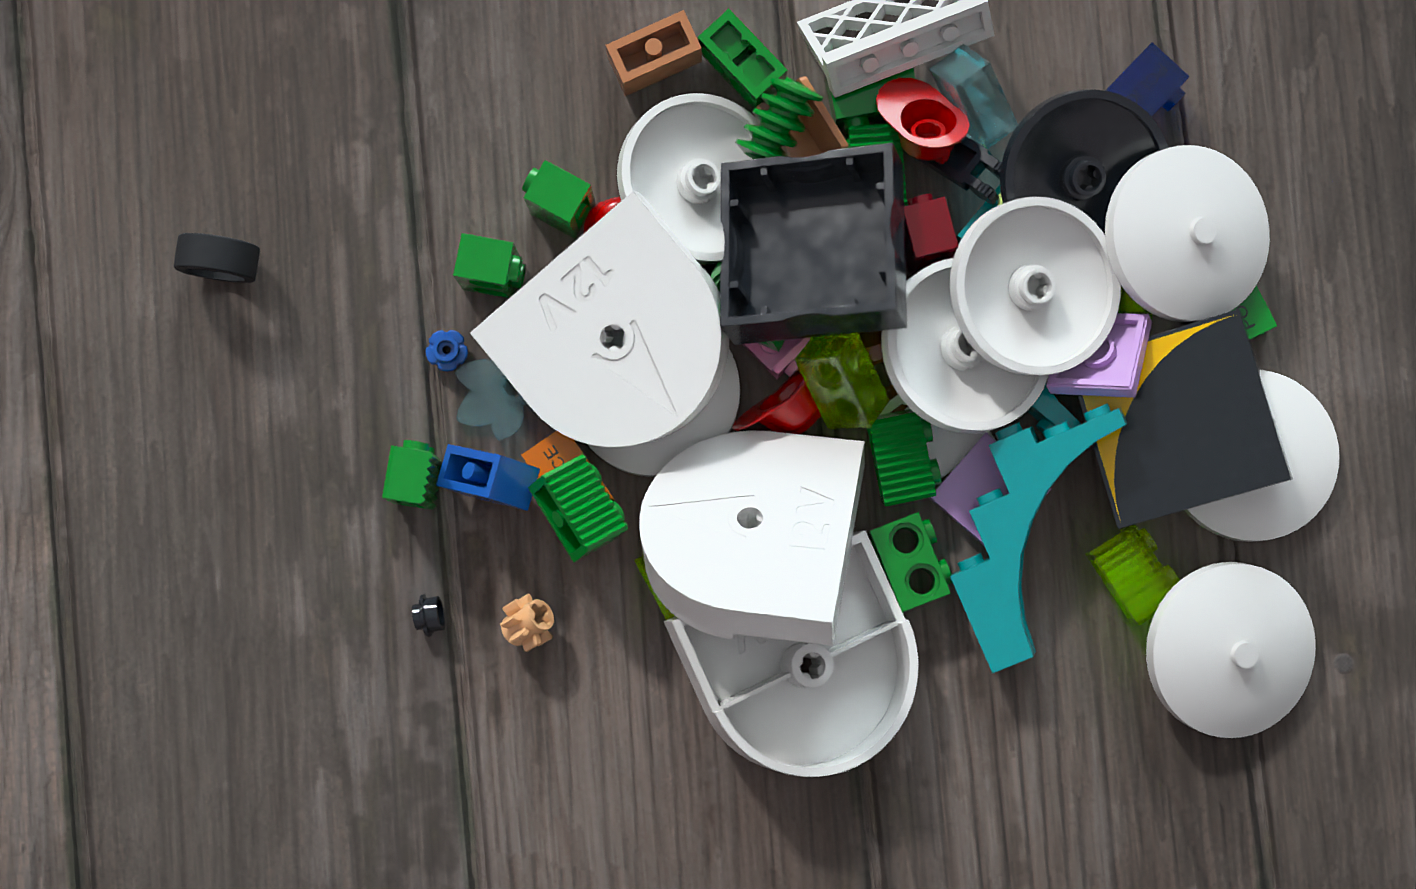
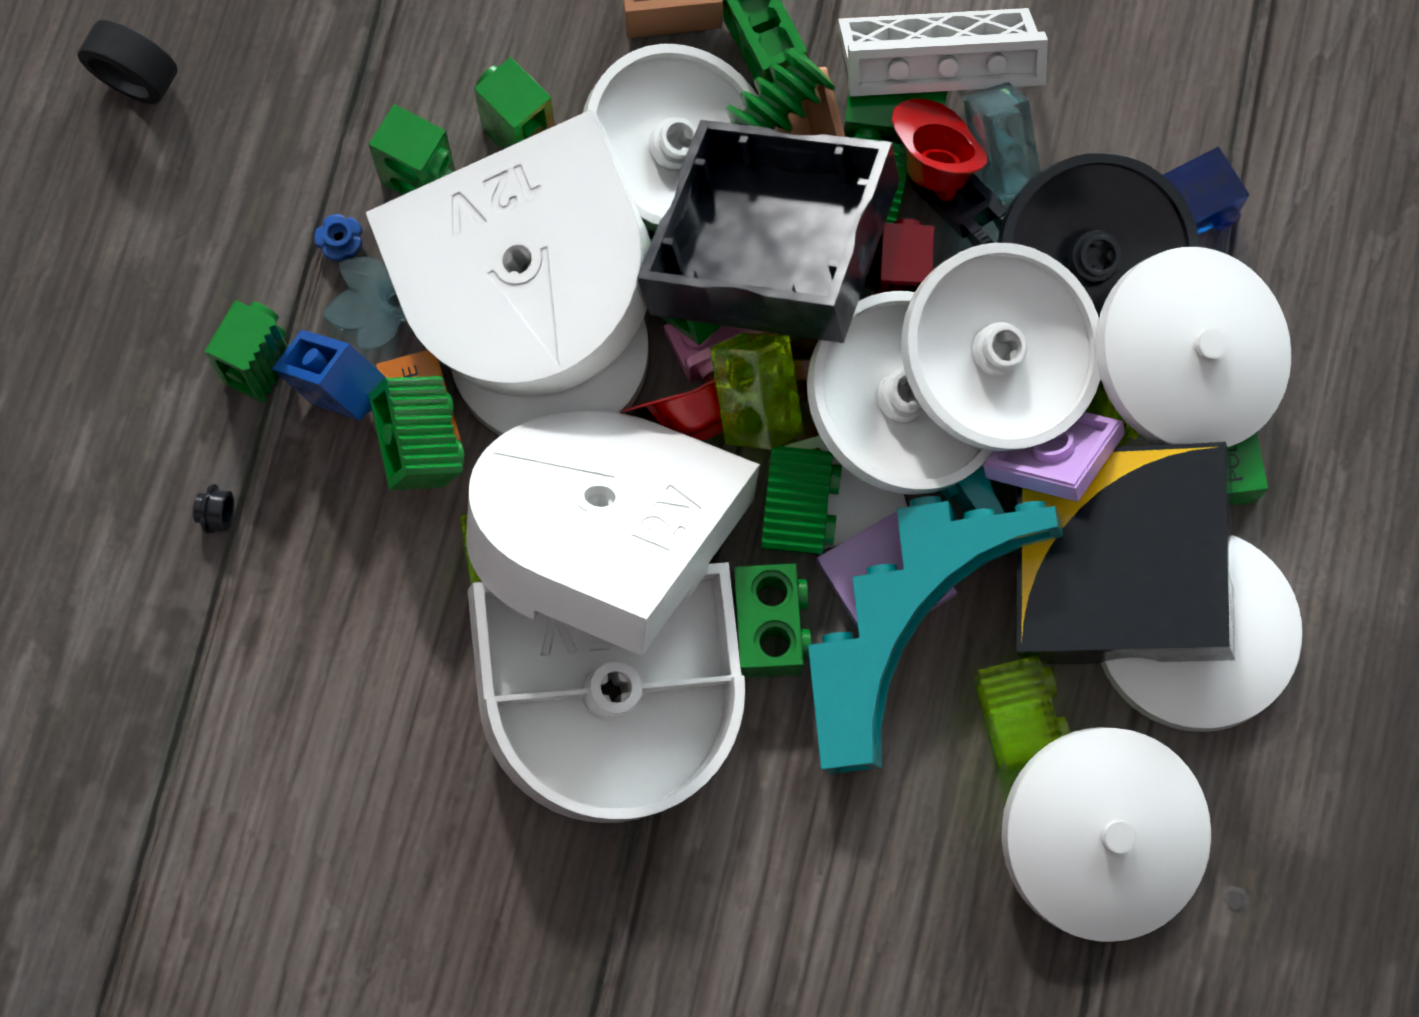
camera: 15 degrees right, 10 degrees down
(527, 622) = (318, 550): light nougat gear -> none

